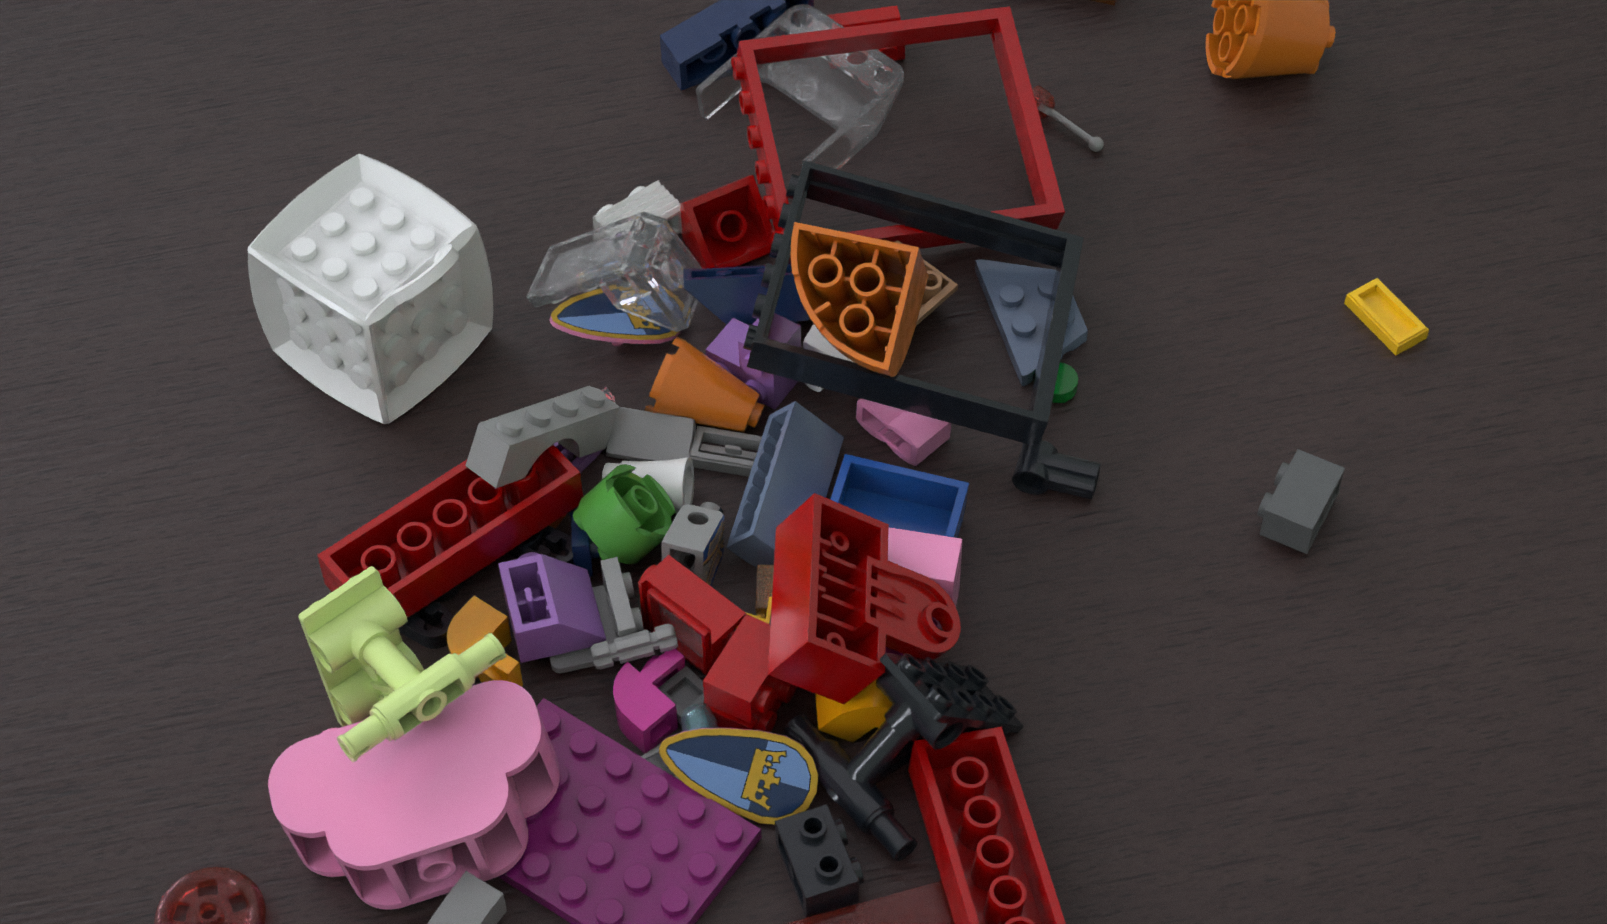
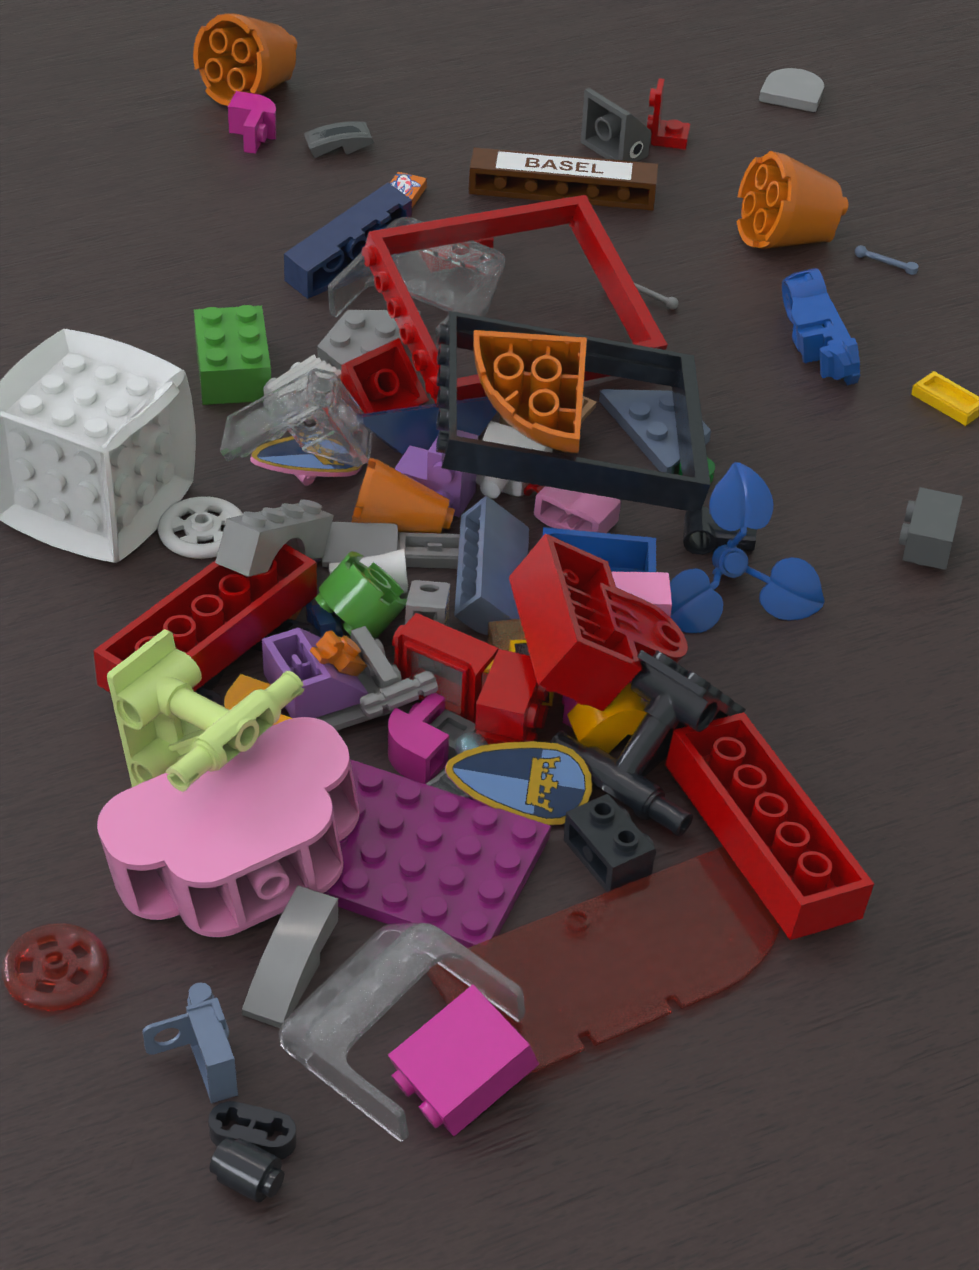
camera: 15 degrees left, 10 degrees down
(490, 361) = (198, 527): none -> white plate
(571, 164) = (231, 354): none -> bright green brick
(578, 588) = (340, 652): none -> orange plate
(723, 154) = (357, 334): none -> light grey wing
(1054, 467) = (791, 590): none -> blue plant
(1252, 203) = (818, 327): none -> blue piece
(1398, 122) = (910, 267): none -> sand blue hinge

